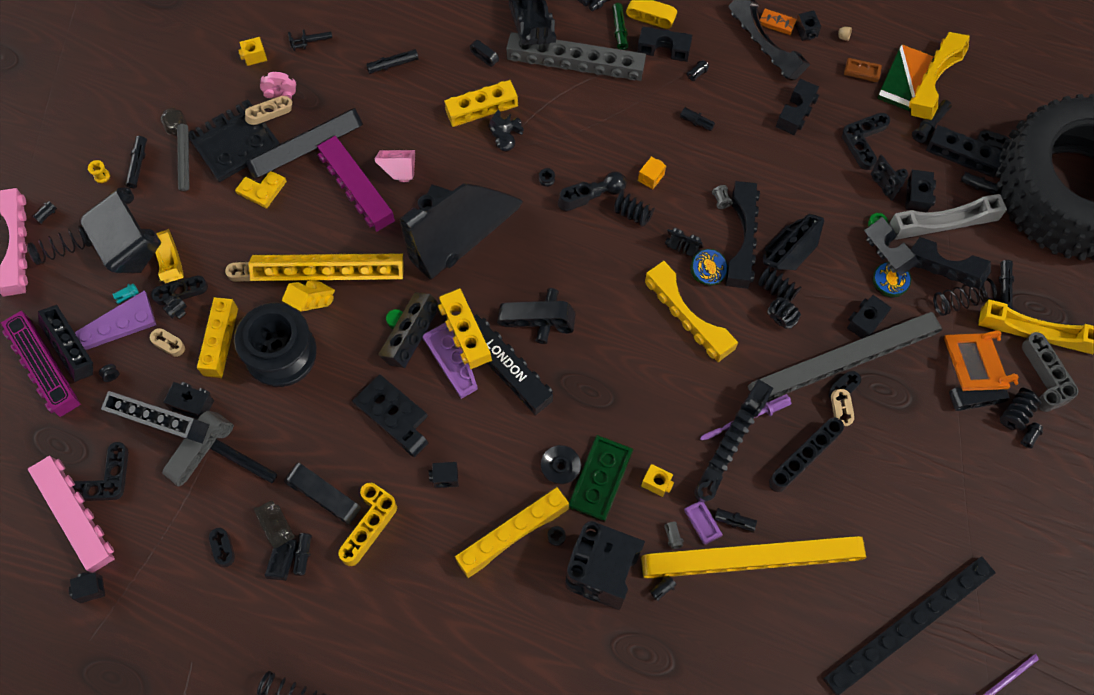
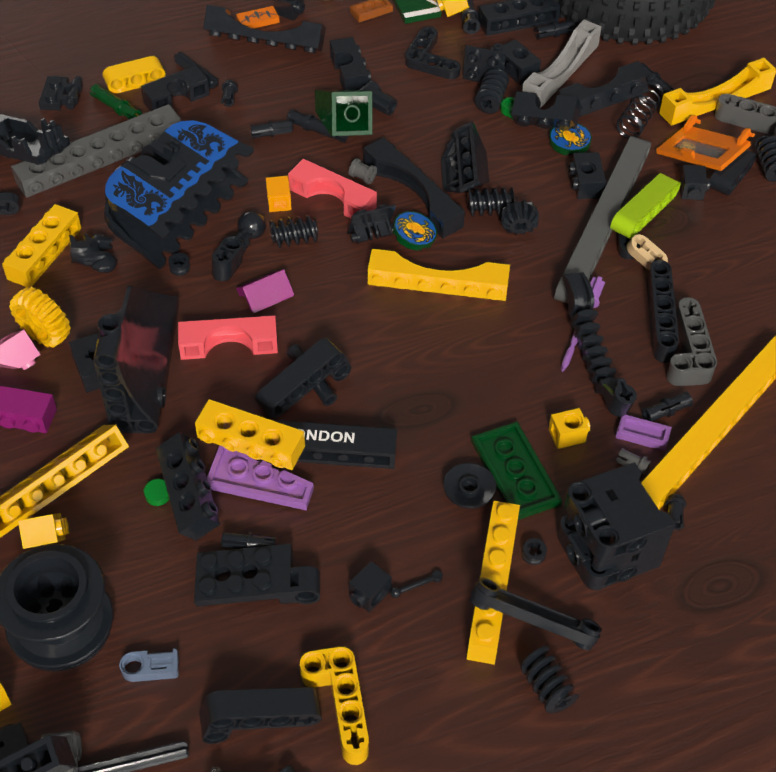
camera: 45 degrees left, 15 degrees down
(300, 418) = (154, 666): none -> sand blue piece
(411, 391) = (240, 541): none -> black axle
(430, 155) = (40, 317): none -> yellow gear
(479, 614) = (546, 681): none -> black piece
(490, 501) = (436, 577): none -> black hinge
(507, 238) = (199, 337): none -> coral arch
(507, 574) = (488, 595): none -> black piece
(562, 128) = (170, 187): none -> black animal
(577, 236) = (266, 290): none -> magenta panel
(682, 177) = (310, 179): none -> coral arch
(696, 39) = (185, 62): none -> black axle
(726, 133) = (308, 123): none -> black pin
(752, 143) = (345, 111): none -> dark green slope
(788, 143) = (380, 100): none -> black piece
(801, 491) = (698, 358): none -> dark grey beam
(874, 200) = (492, 91): none -> black piece
(880, 372) = (645, 206): none -> lime beam
(938, 382) = (694, 182): none -> black brick

